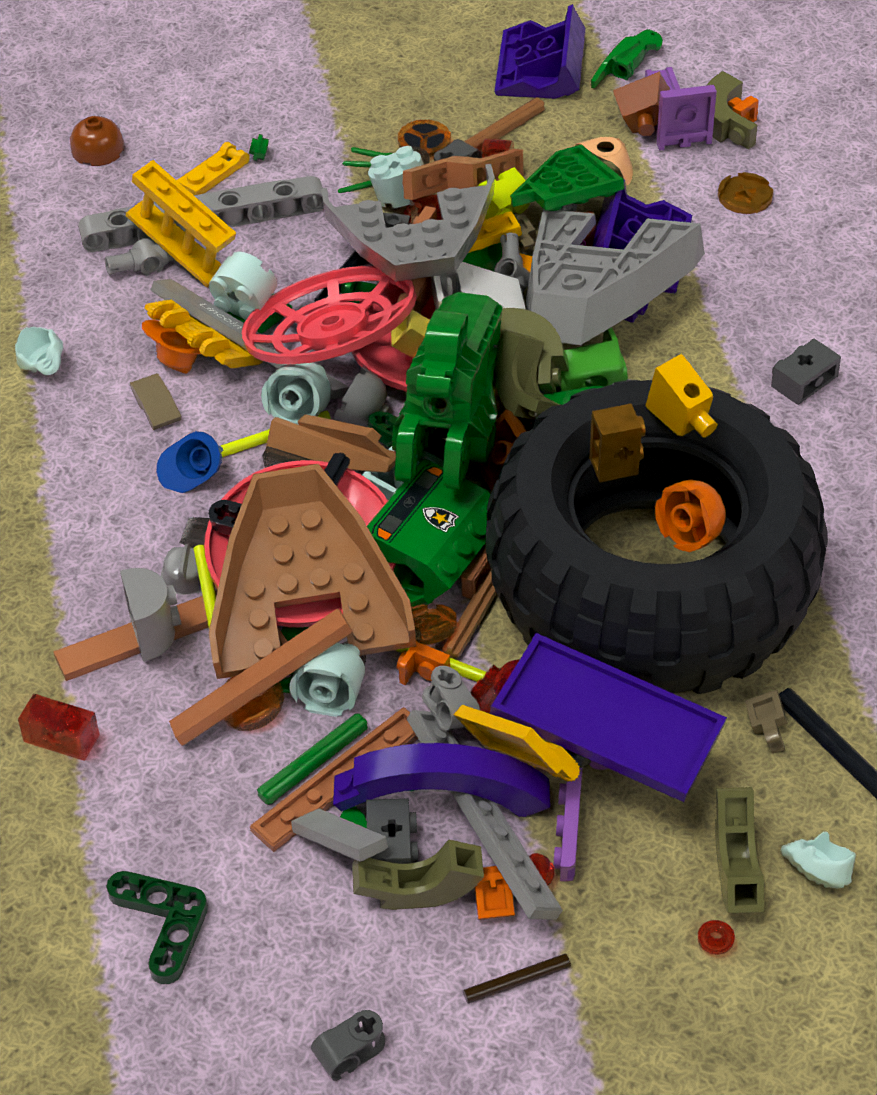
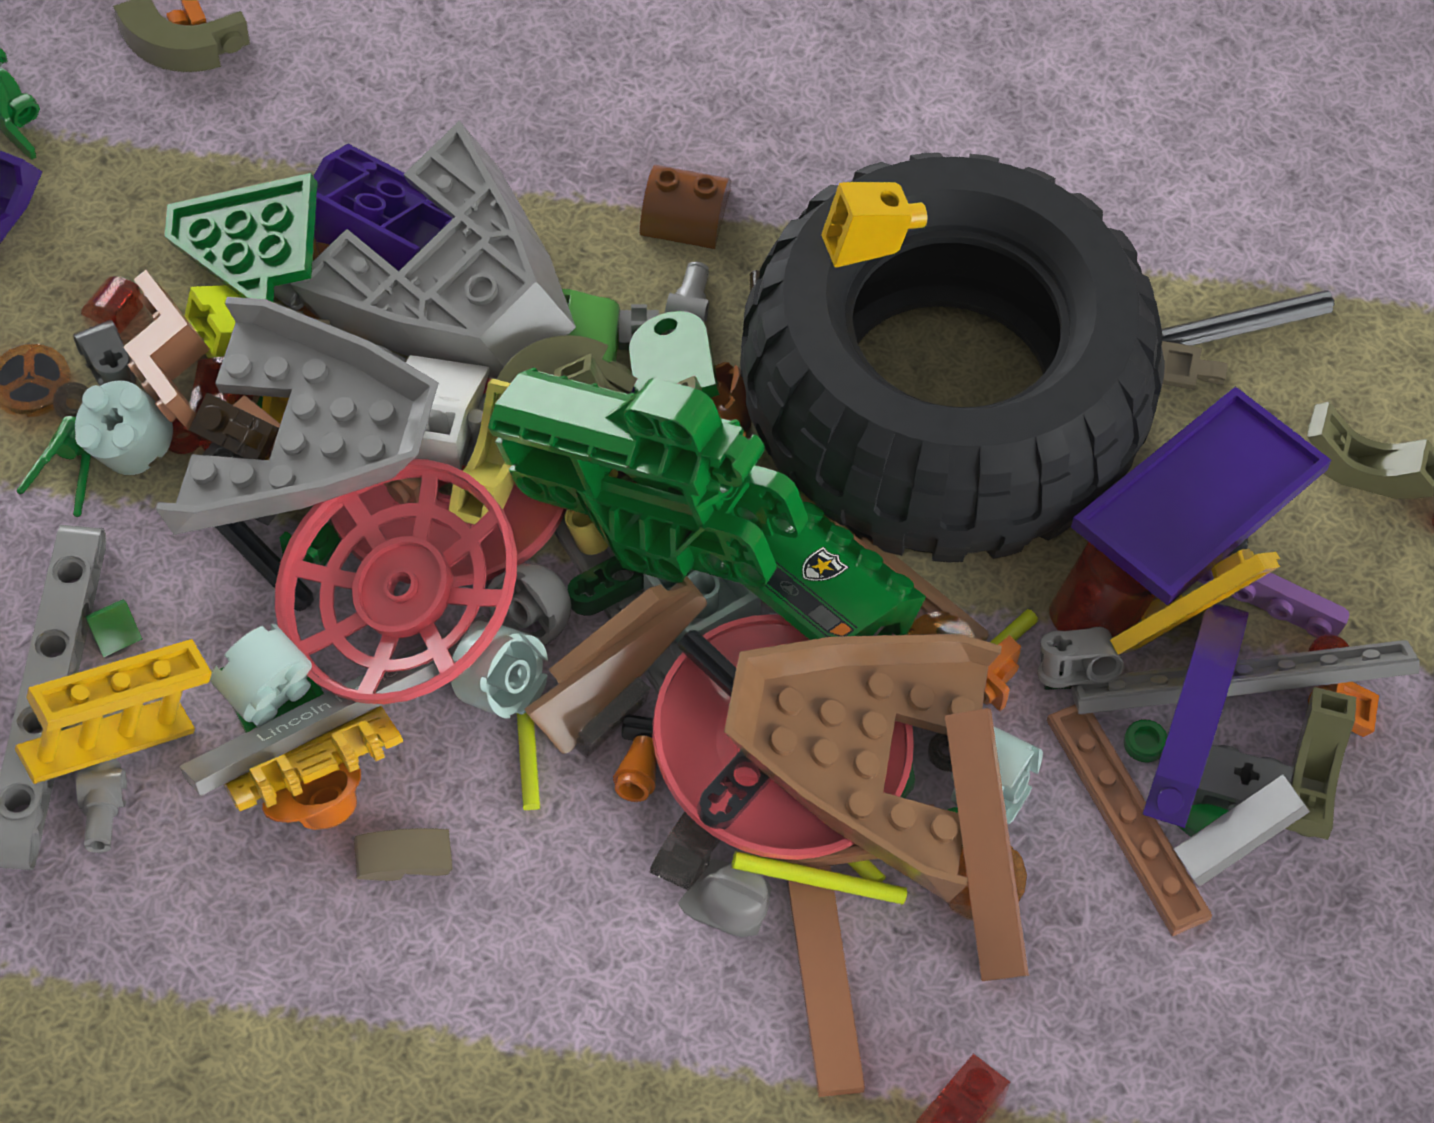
camera: 75 degrees left, 10 degrees up
(39, 350) = (244, 976): light aqua hair -> none
(150, 610) = (835, 945): light grey brick -> none
(176, 917) = (1283, 1048): dark green beam -> none
(189, 462) = (557, 836): blue piece -> none
(260, 226) = (113, 628): none -> green tile
(312, 759) = (1091, 836): green axle -> none
(408, 207) = (233, 428): none -> dark brown hinge
(508, 123) = (55, 278): medium nougat axle -> none
(616, 442) = (924, 306): pearl gold brick -> none
(618, 156) = (169, 192): light nougat piece -> none
(640, 103) = (125, 112): dark orange torso -> none
(684, 113) = (182, 92): medium lavender bracket -> none
(690, 514) = (1057, 277): orange cylinder -> none
(745, 193) = (334, 77): pearl gold tile -> none
(747, 380) = (684, 206): none -> dark orange brick
(805, 371) = (684, 133): dark grey brick -> none
(821, 860) = (1391, 389): light aqua hair -> none

